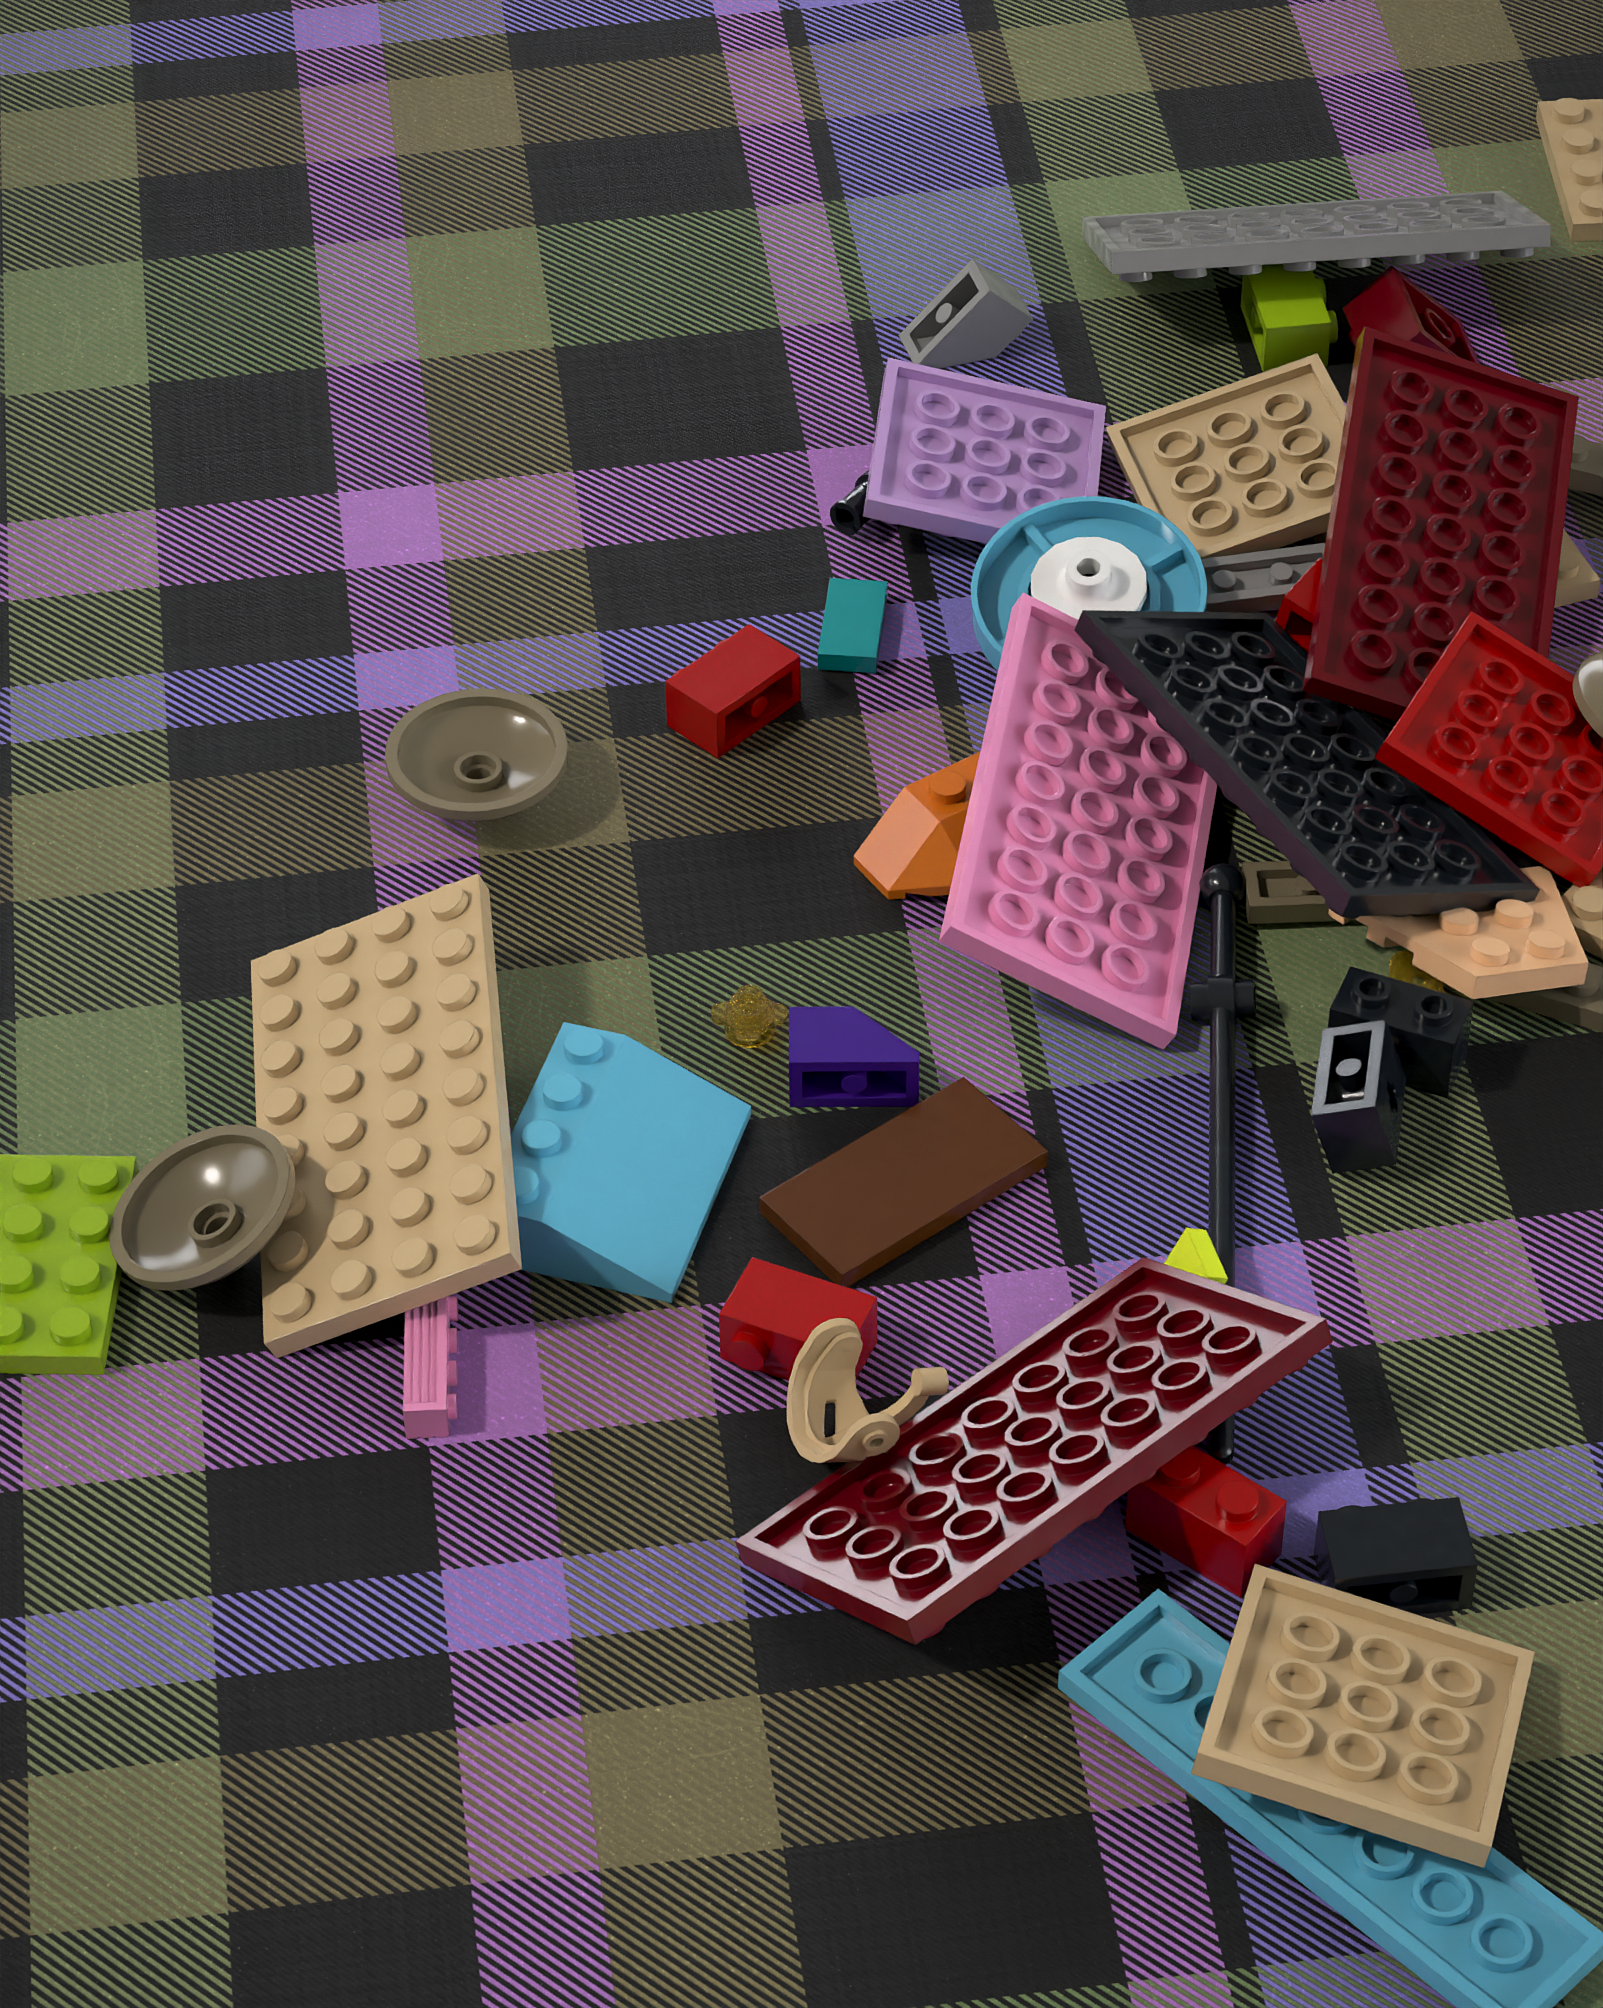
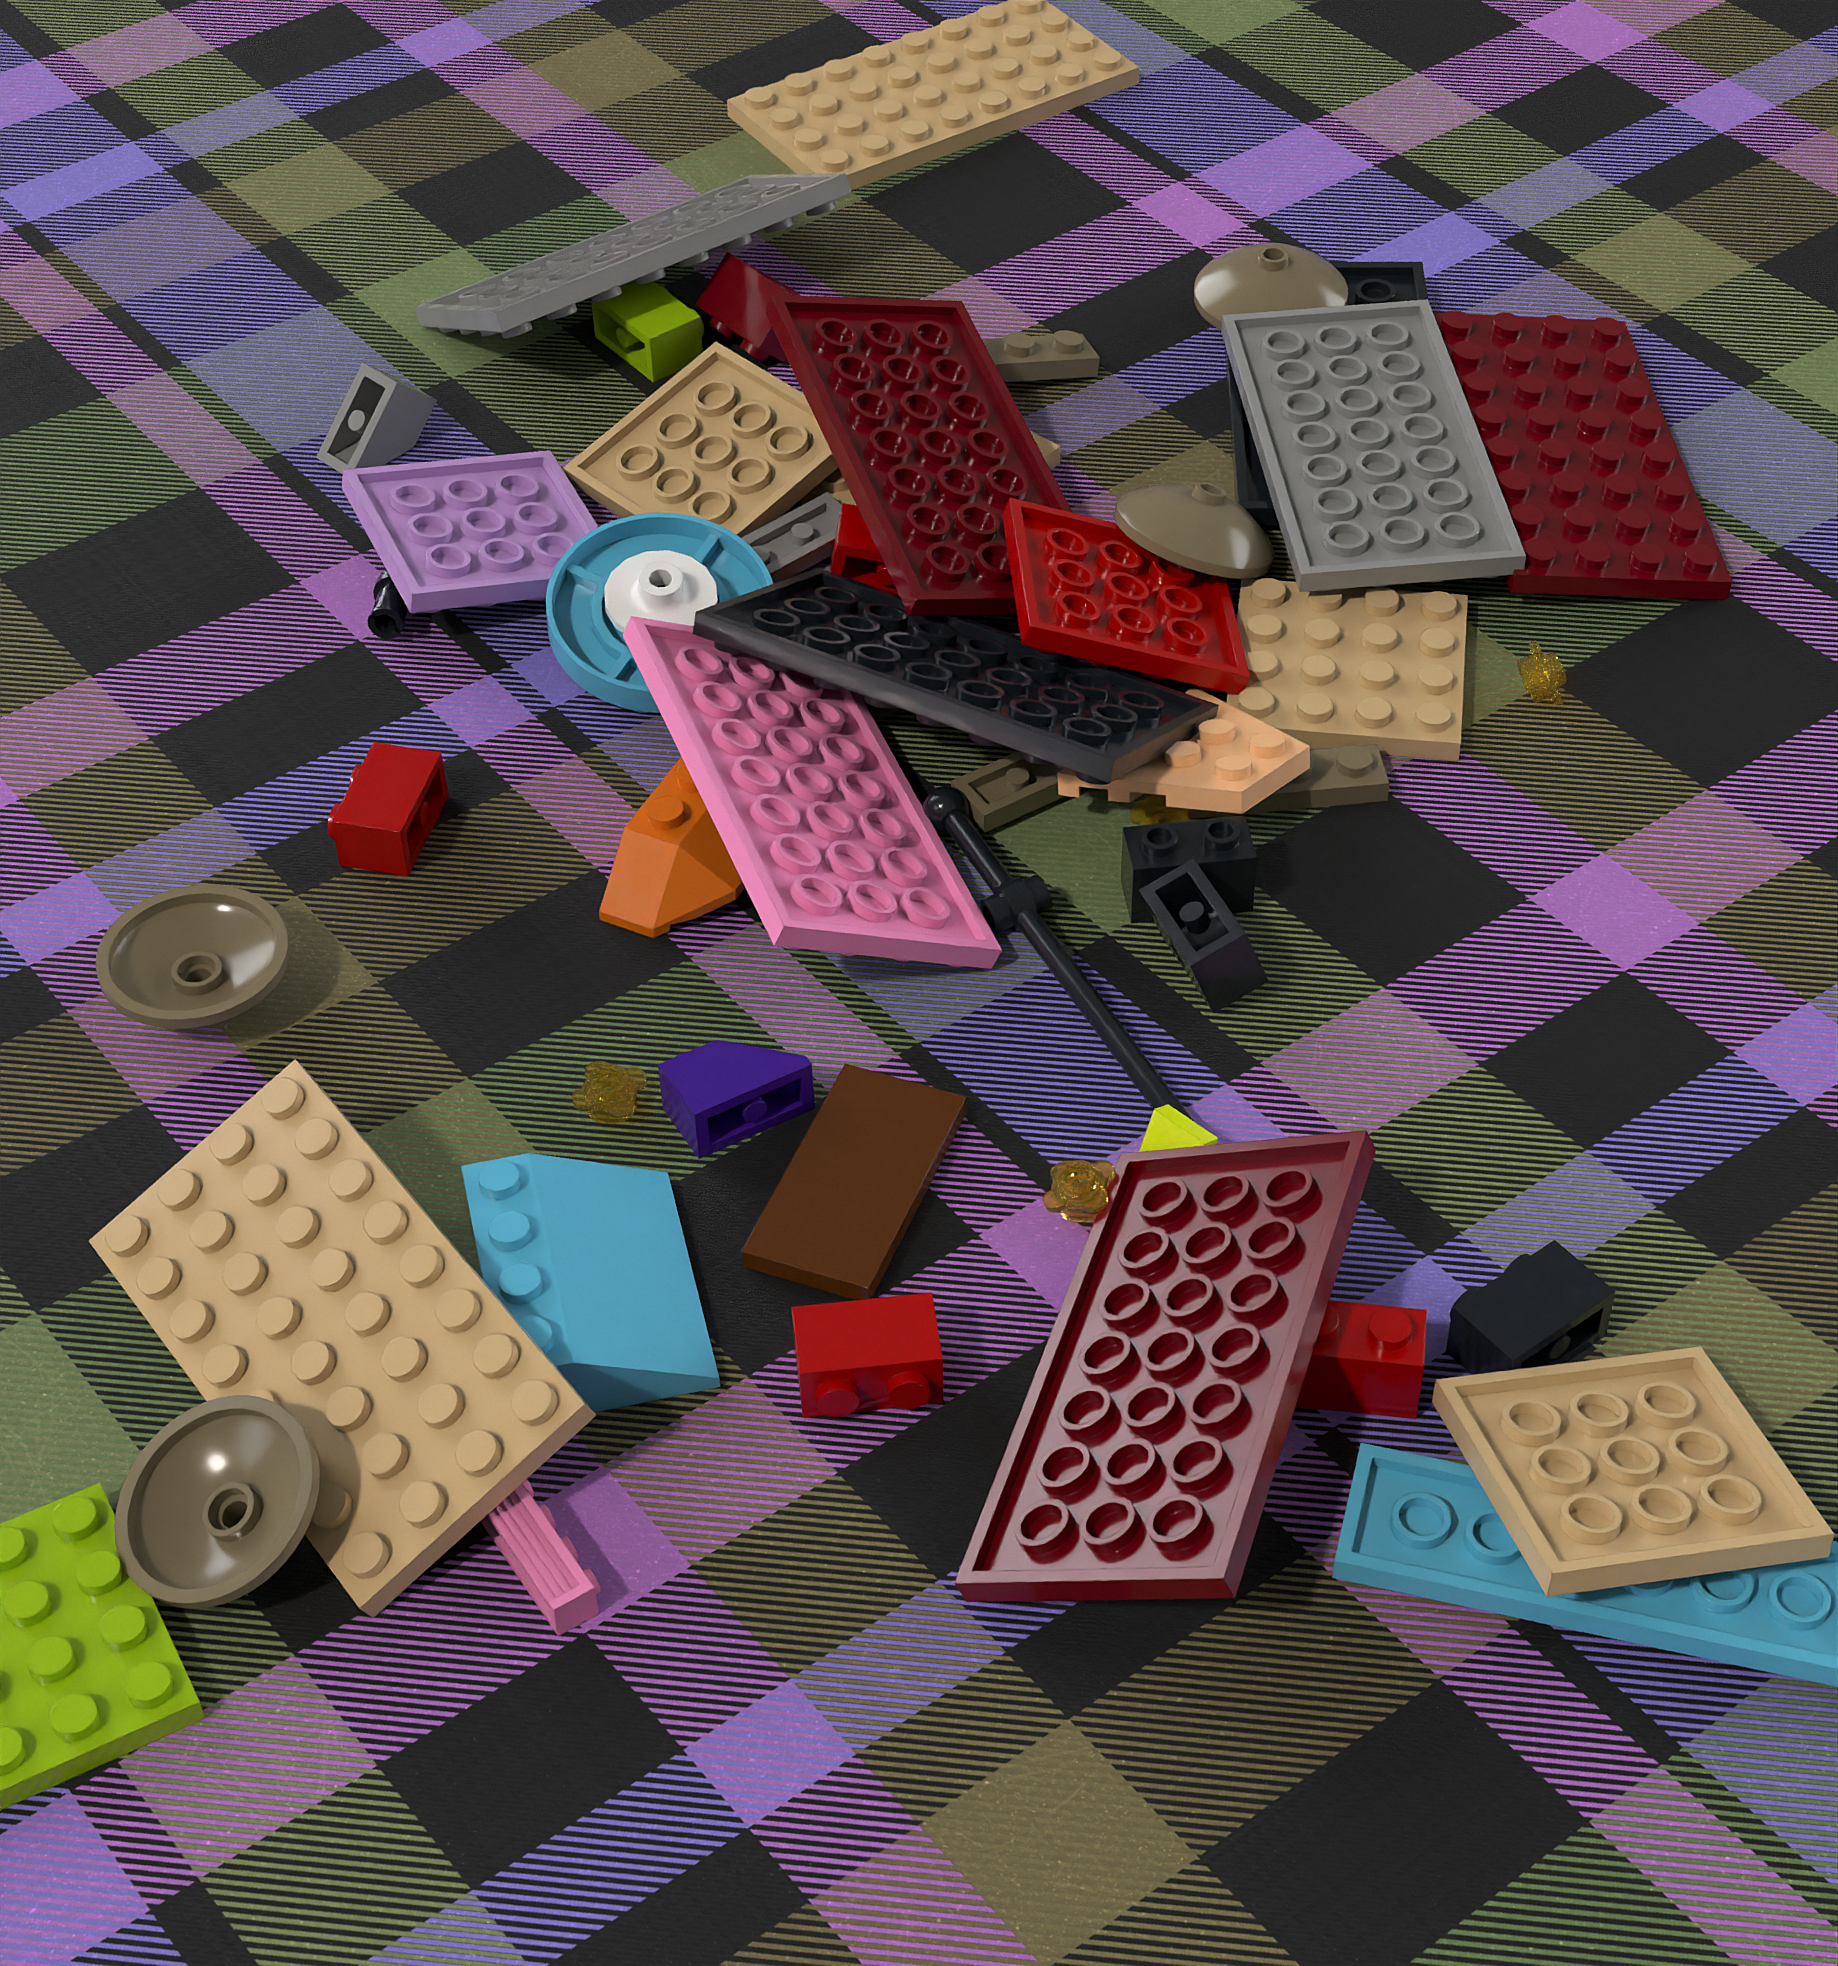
camera: 30 degrees left, 0 degrees up
(827, 1375) = (991, 1437): tan helmet -> none
(852, 625) = (453, 713): teal tile -> none
(1085, 1270) = (1079, 1189): none -> clear yellow plate

